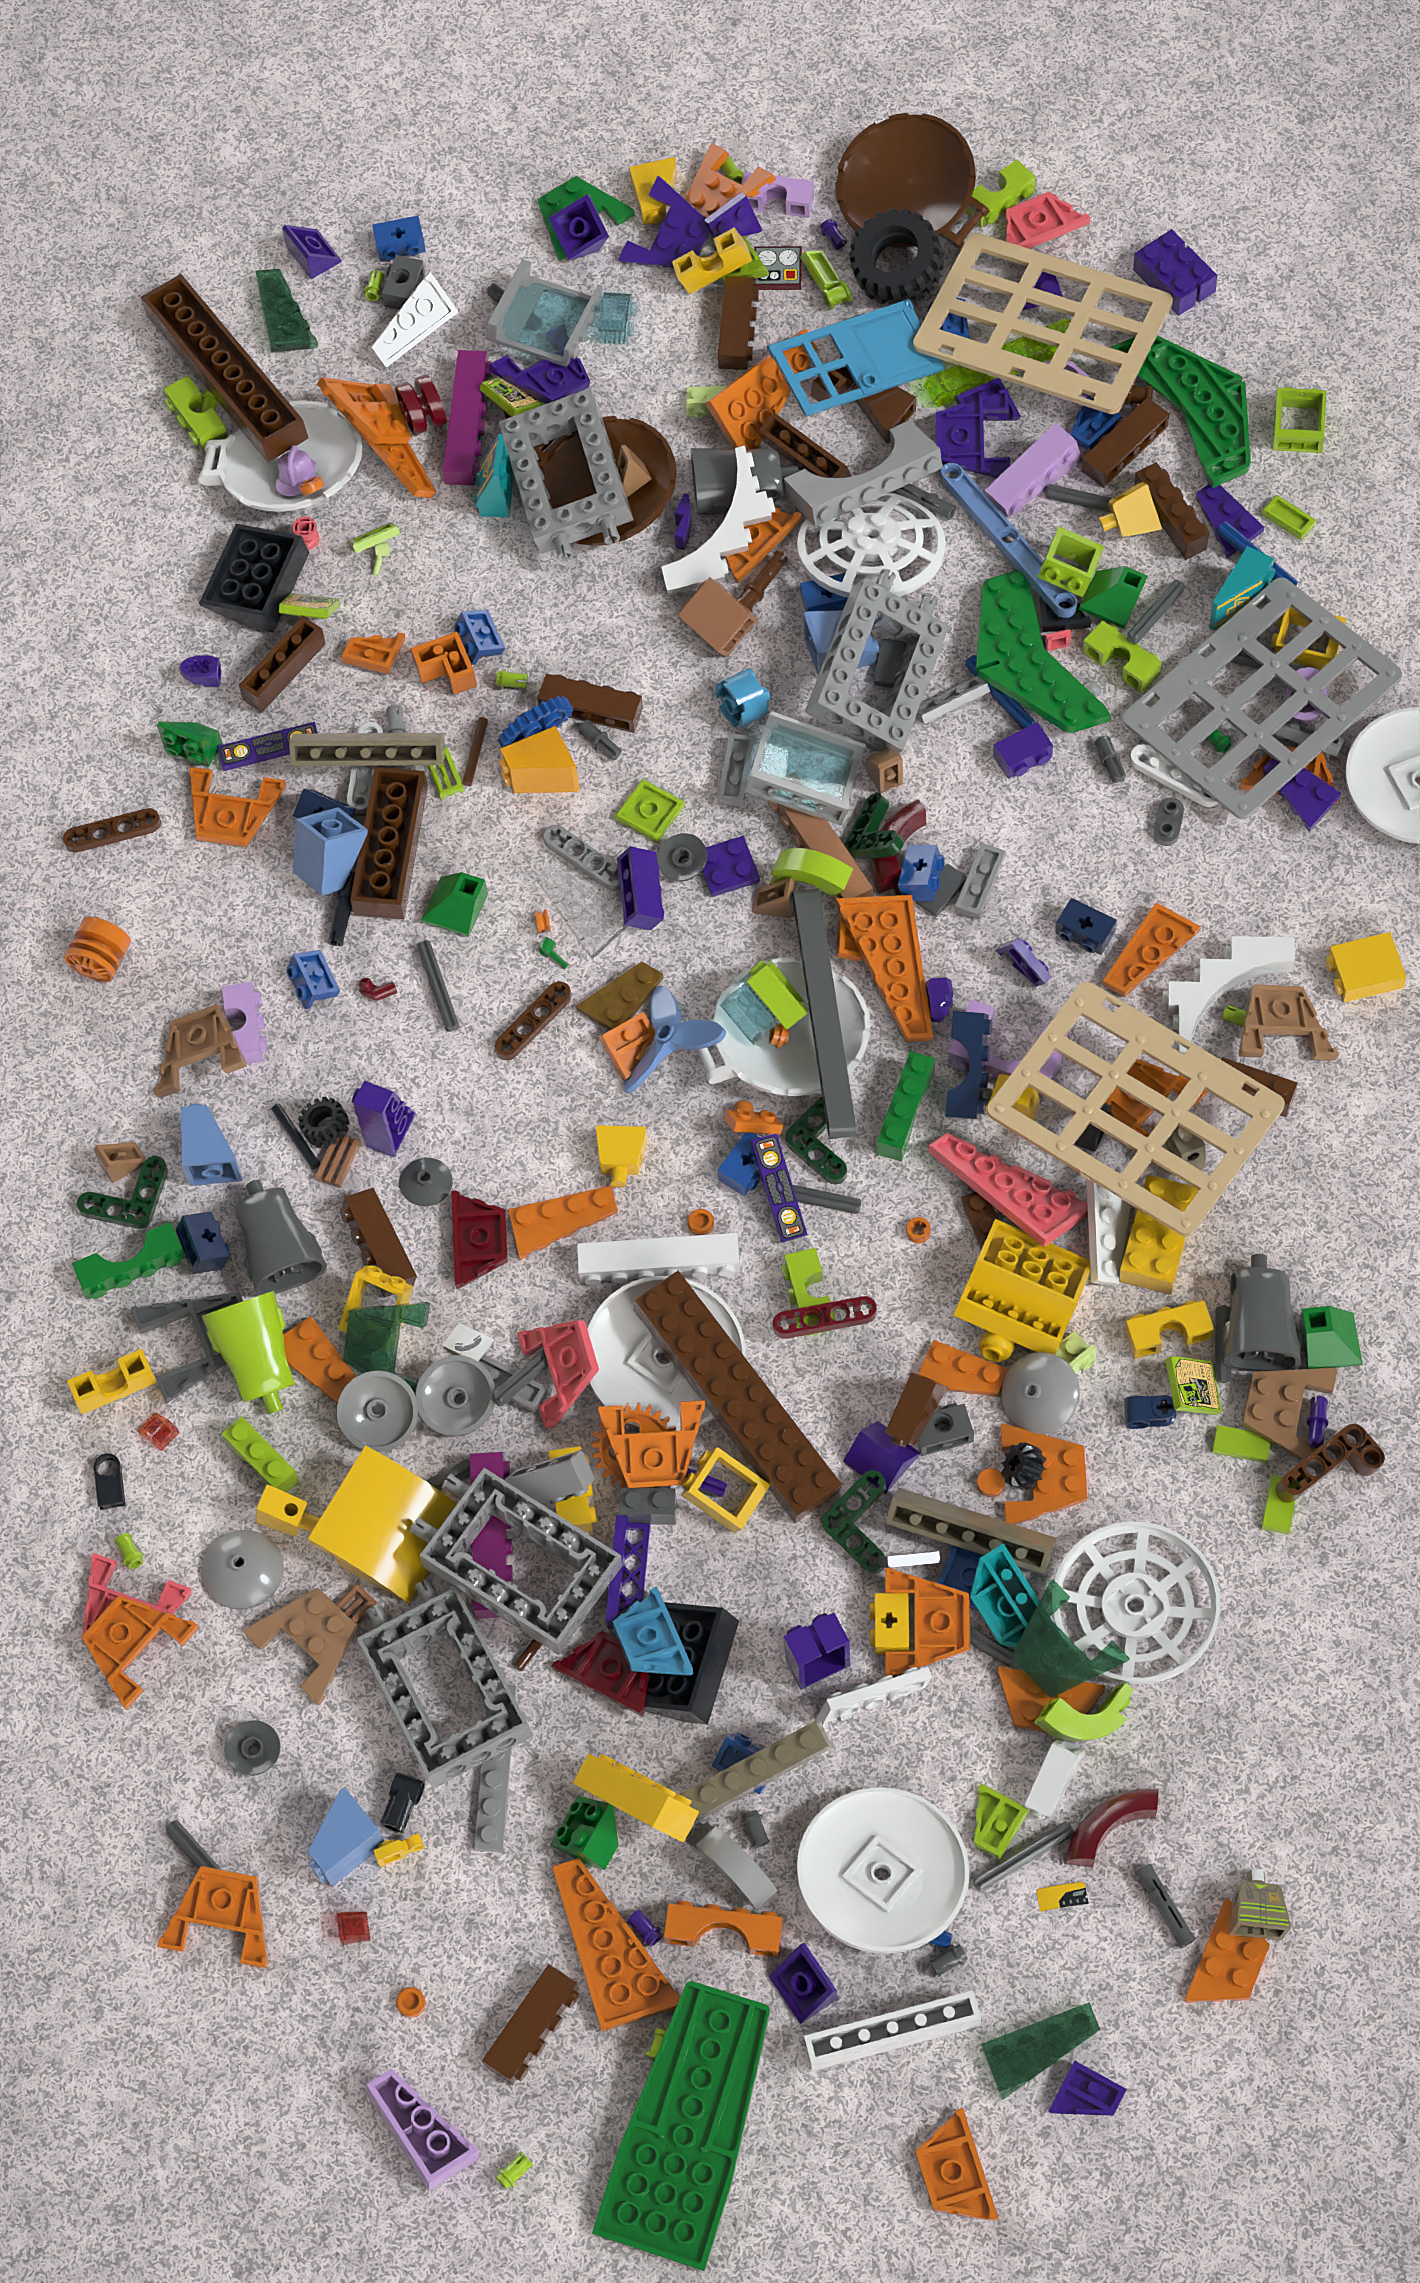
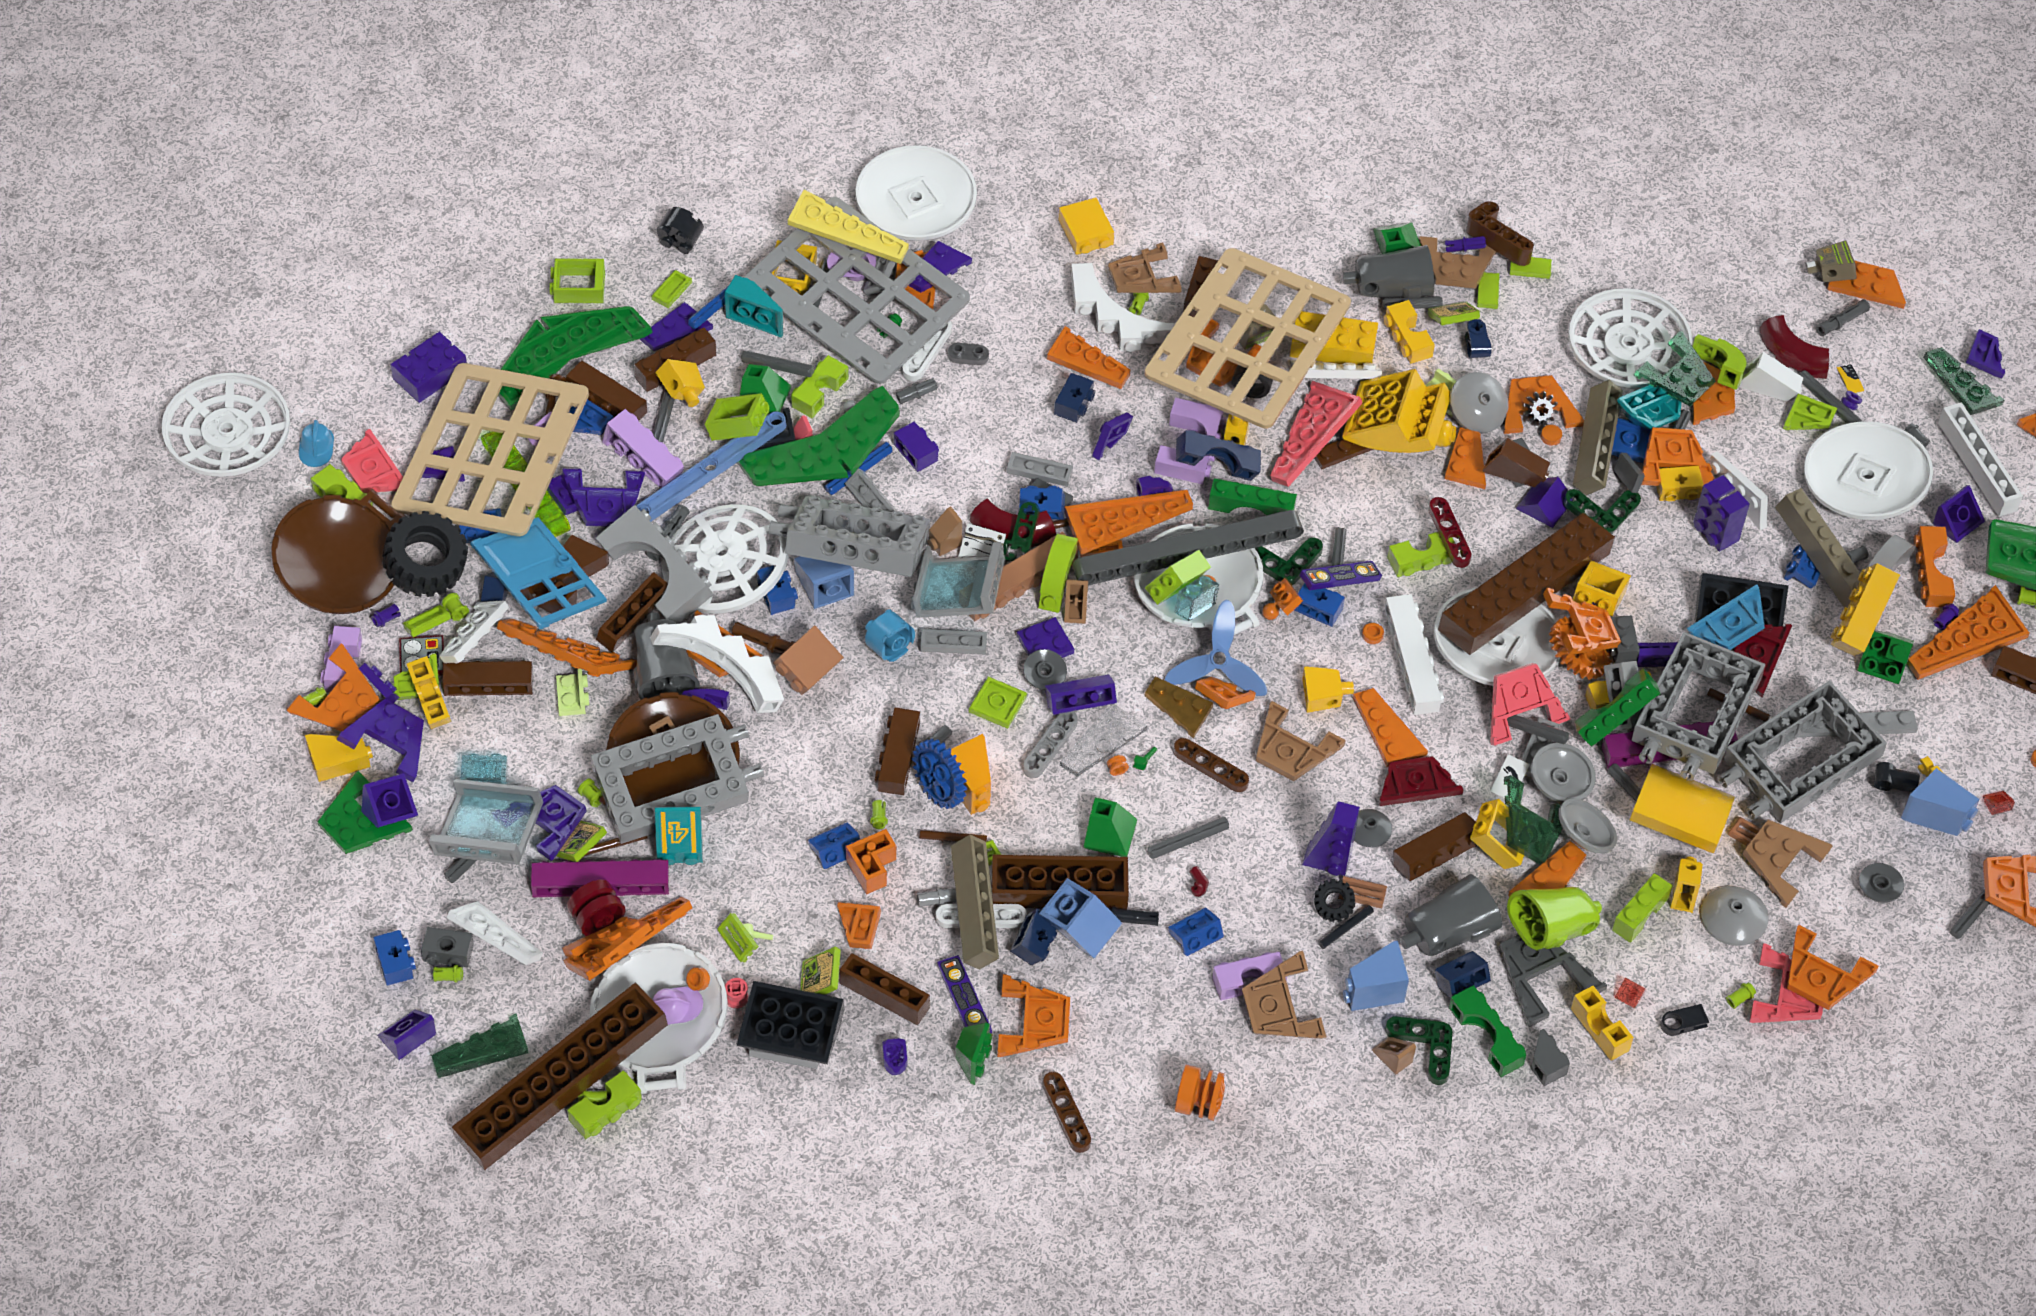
camera: 105 degrees left, 10 degrees down
(81, 1318) = (1548, 1061): none -> dark grey slope
(527, 1476) = (1635, 695): none -> green arch
(538, 1100) = (1288, 753): none -> medium nougat wing
(790, 301) = (477, 625): none -> white wing
(865, 805) = (979, 541): none -> white sticker
(915, 1237) = (1353, 496): orange bush -> none
(1024, 1886) = (1851, 400): none -> dark purple bush
(1078, 174) = (316, 445): none -> dark azure piece
(1101, 79) = (225, 418): none -> white dish
(1353, 663) = (822, 219): none -> light yellow wing
(1368, 518) = (679, 229): none -> black brick

